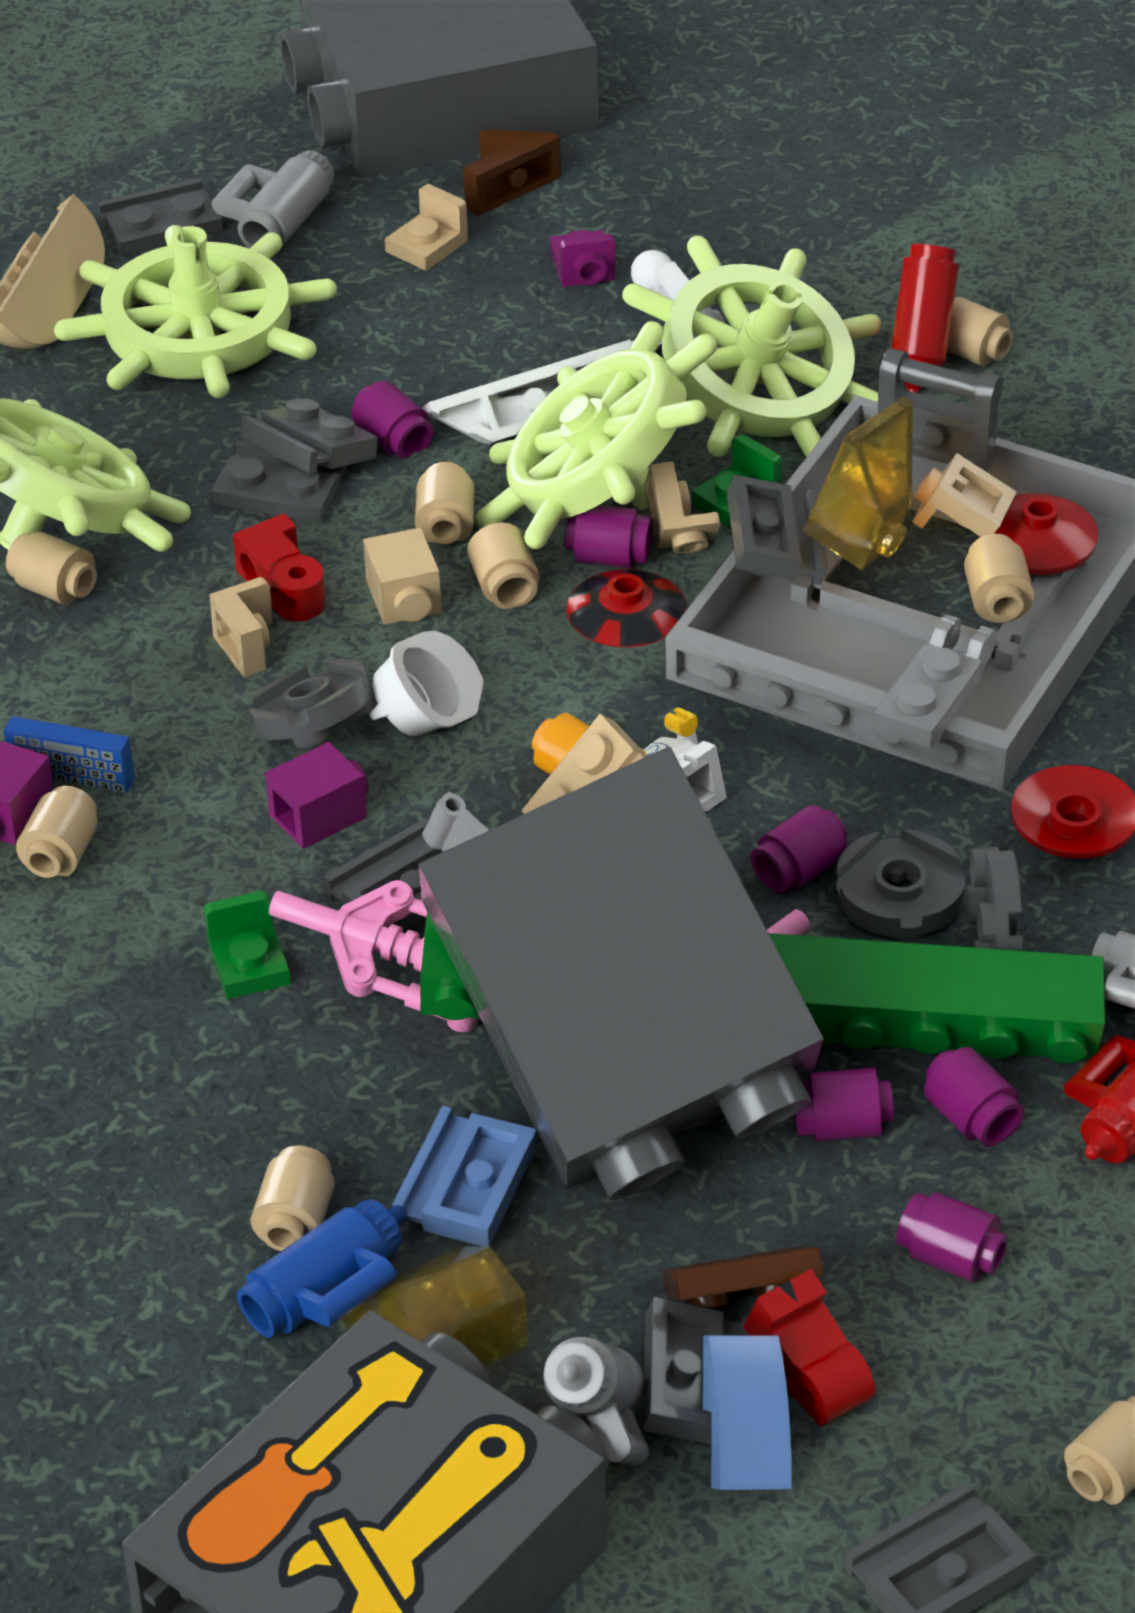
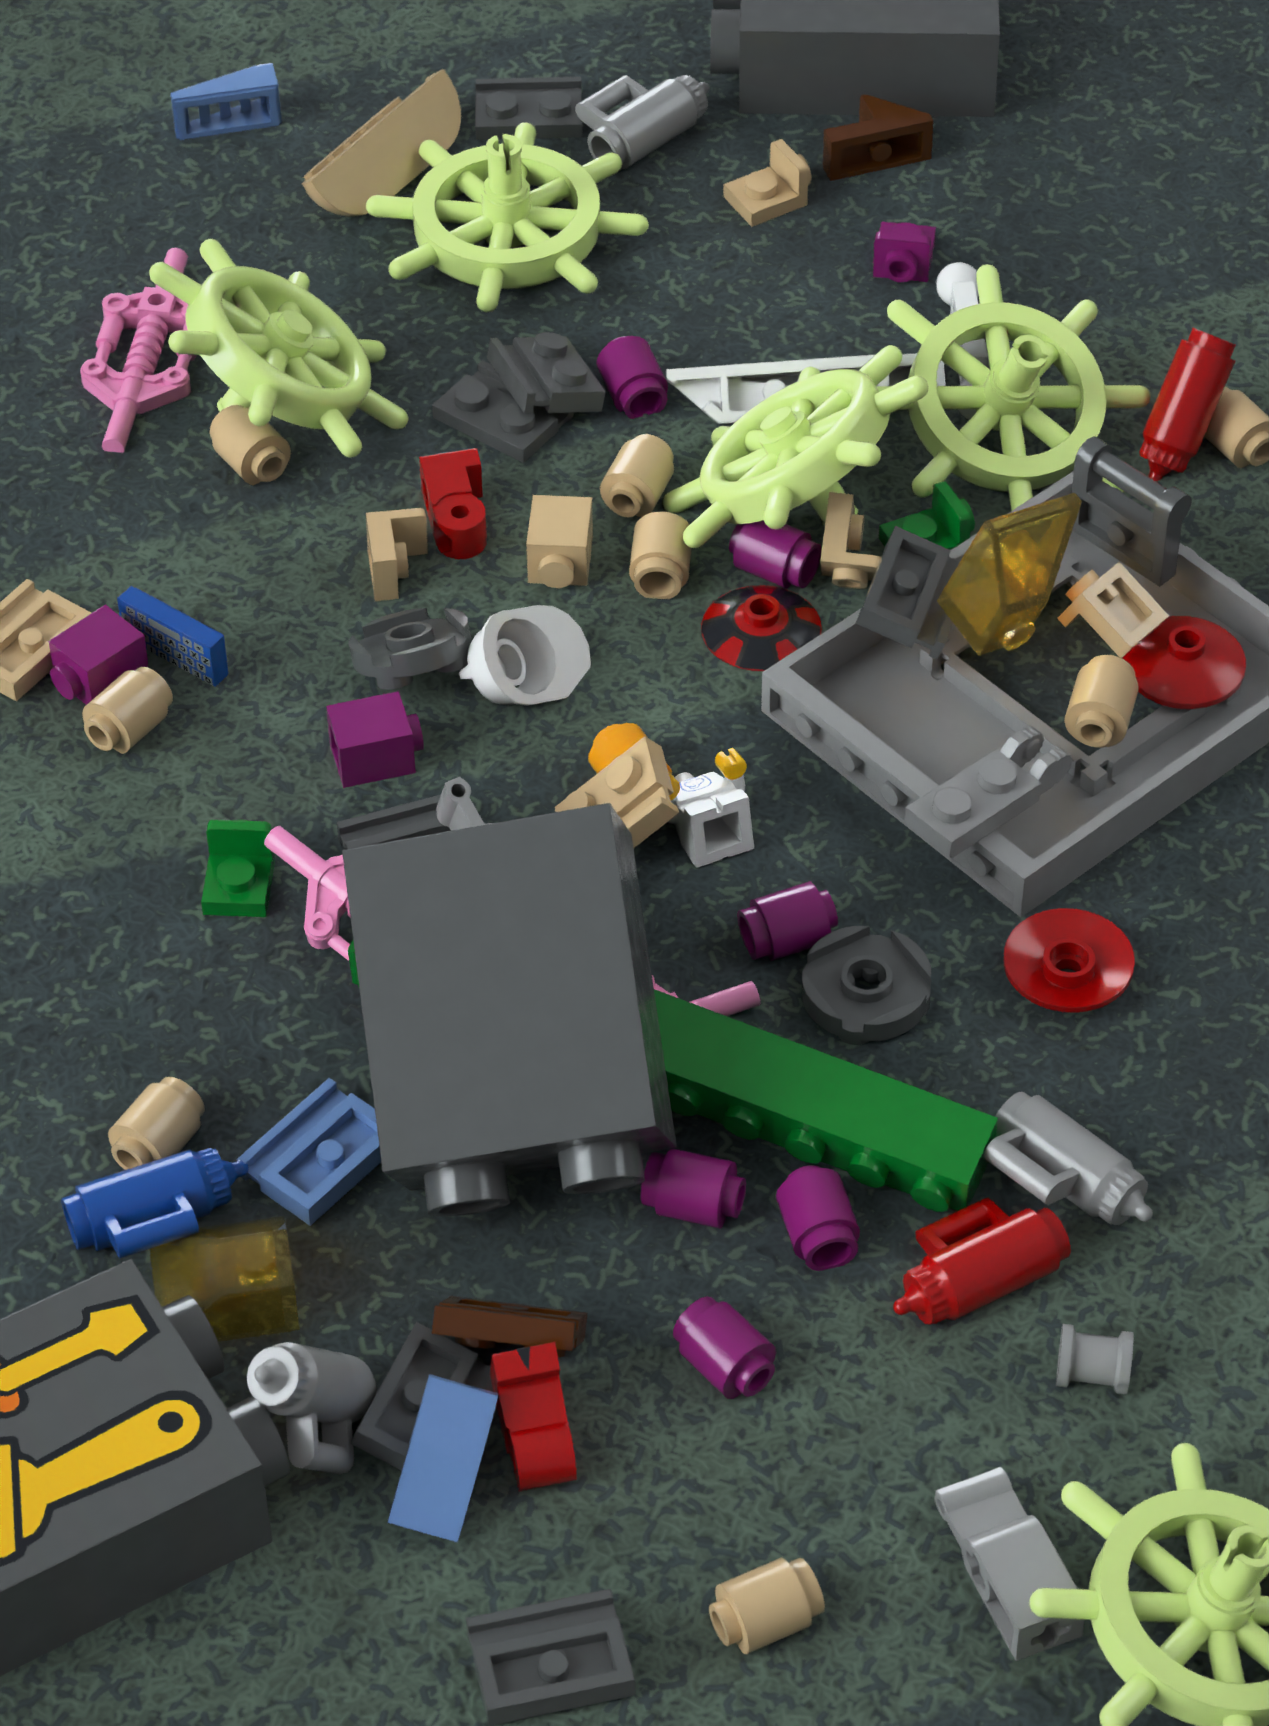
camera: 20 degrees right, 5 degrees up
(994, 898) = (923, 1052): dark grey plate -> none

